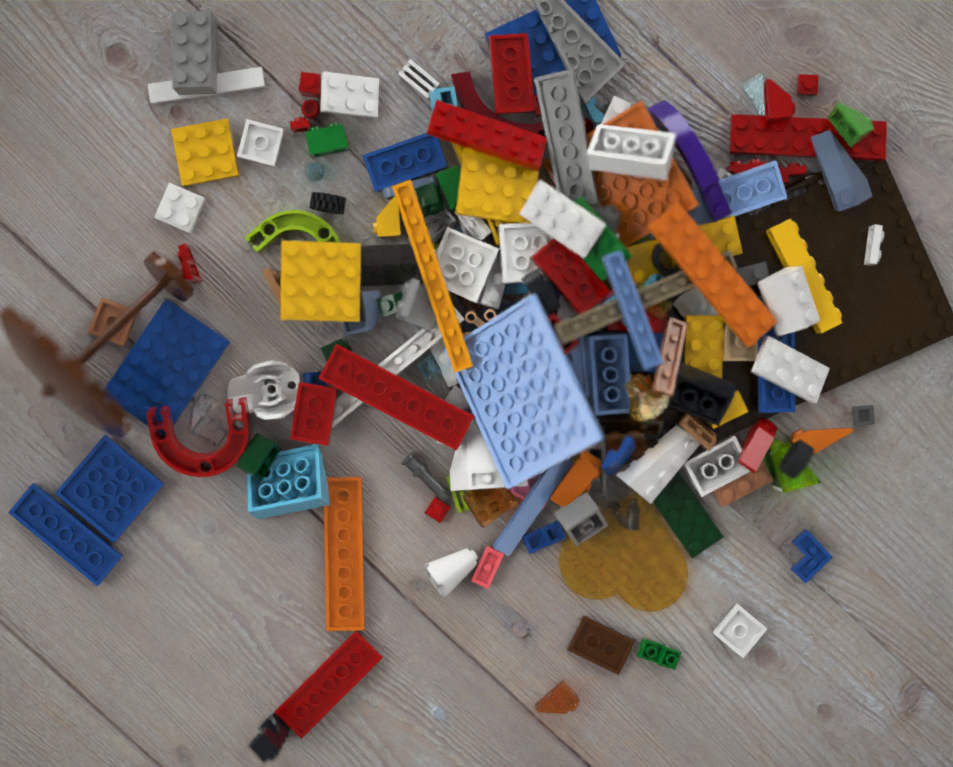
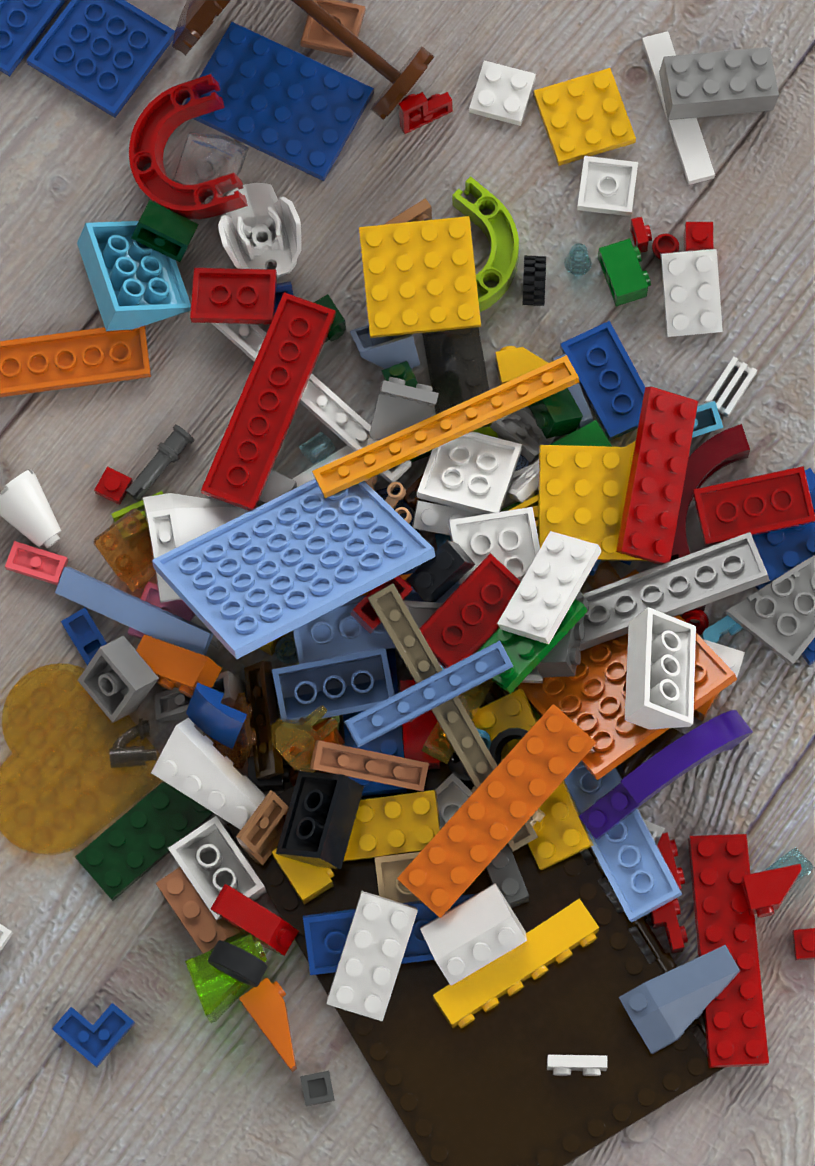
camera: 85 degrees right, 15 degrees down
(850, 123) = (752, 1001): bright green slope -> none

